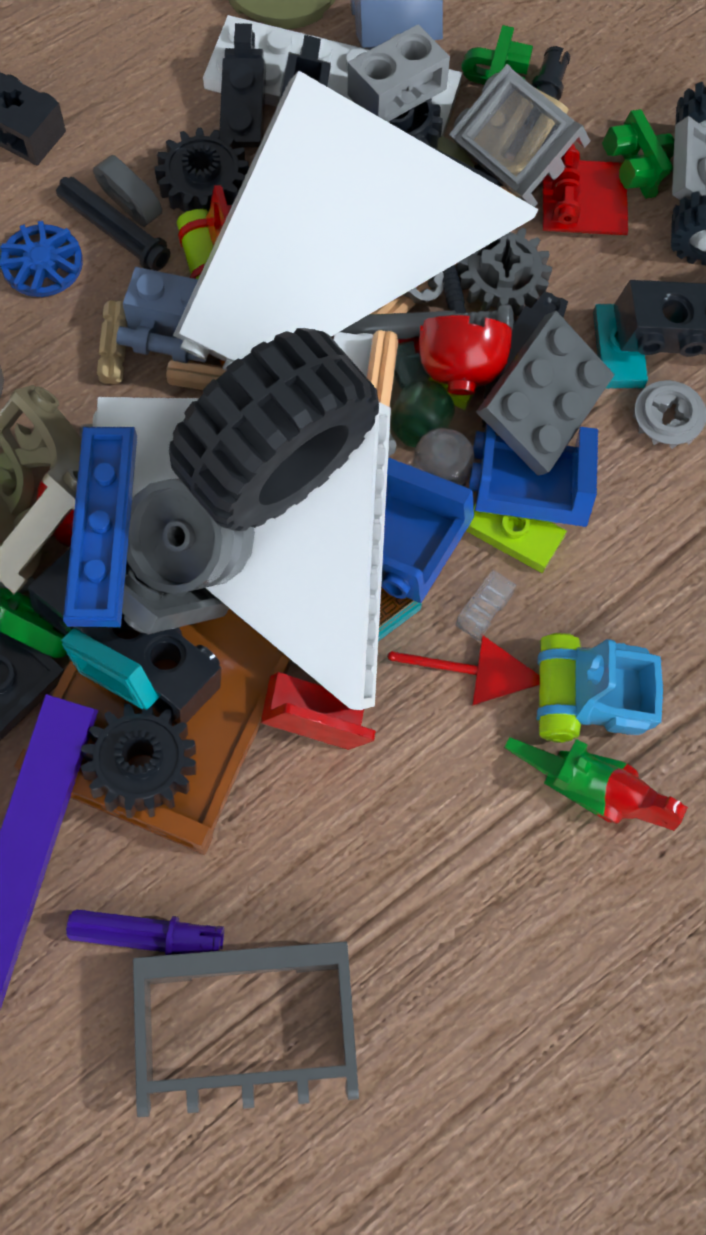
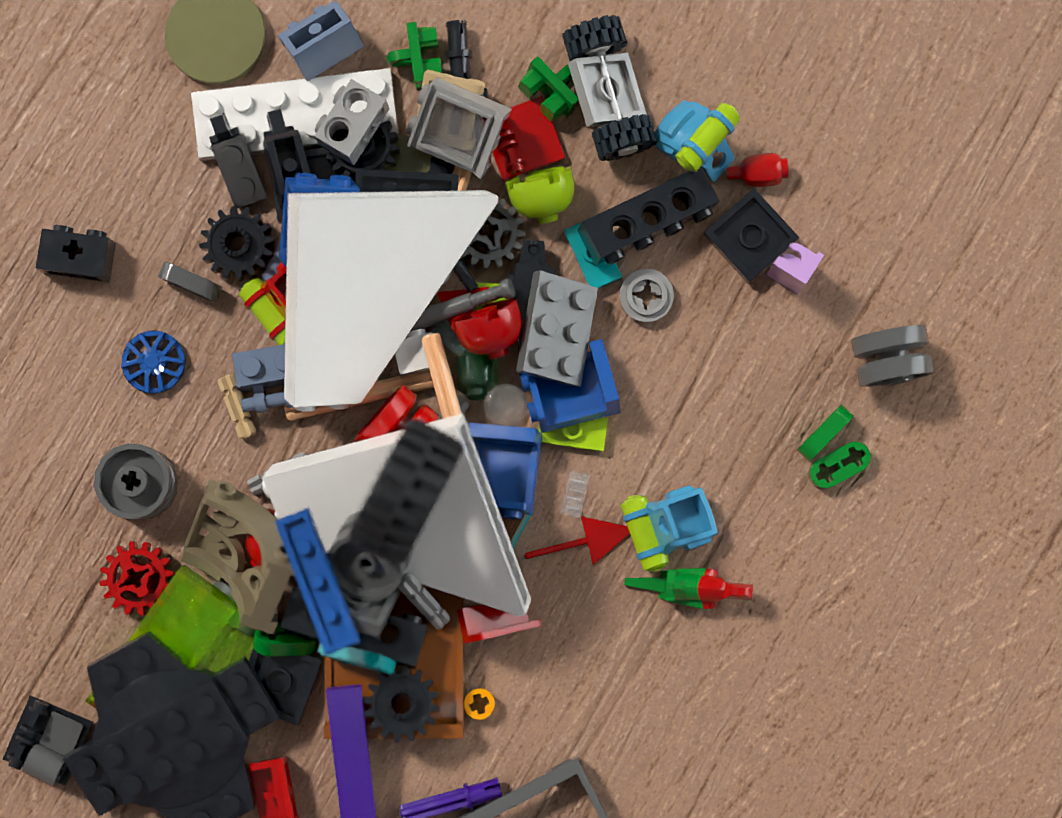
camera: 15 degrees left, 15 degrees up
(150, 250) = (191, 311): black axle -> none
(231, 639) = (423, 601): none -> light grey axle
(233, 807) = (470, 699): none -> light orange bush
(587, 248) = (542, 193): none -> lime cylinder

